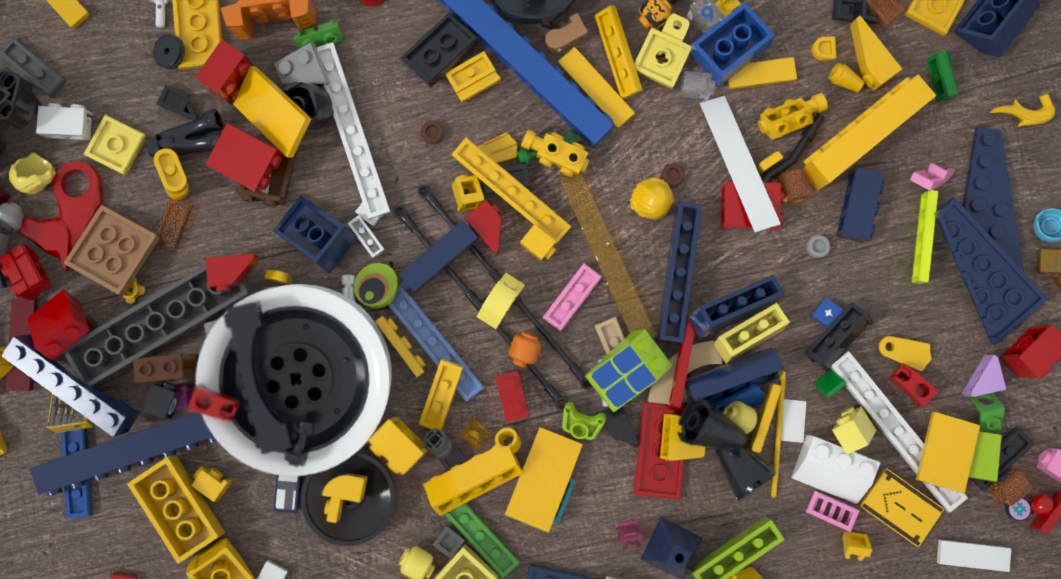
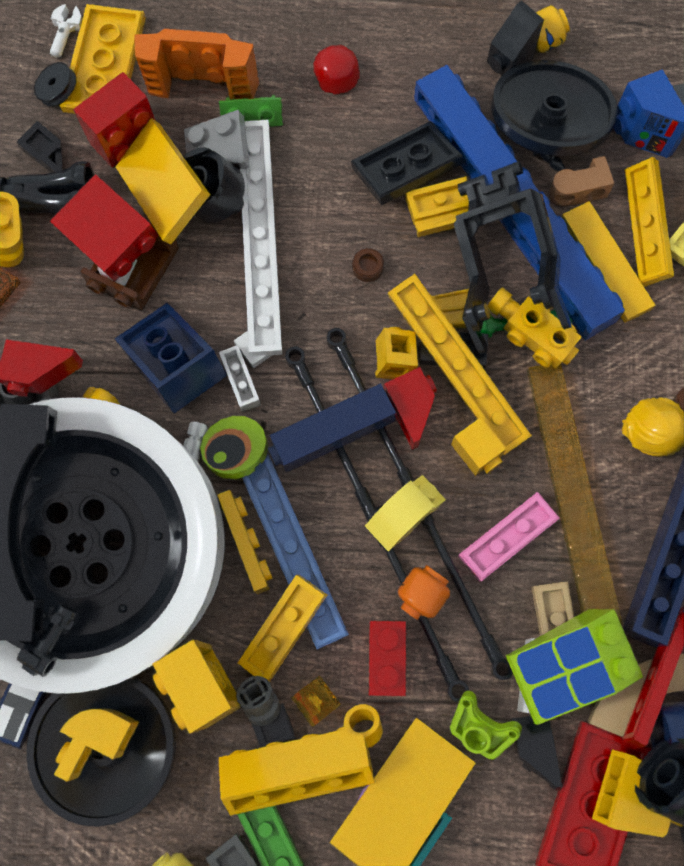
camera: 20 degrees right, 10 degrees down
(508, 71) = (491, 204): none -> black piece

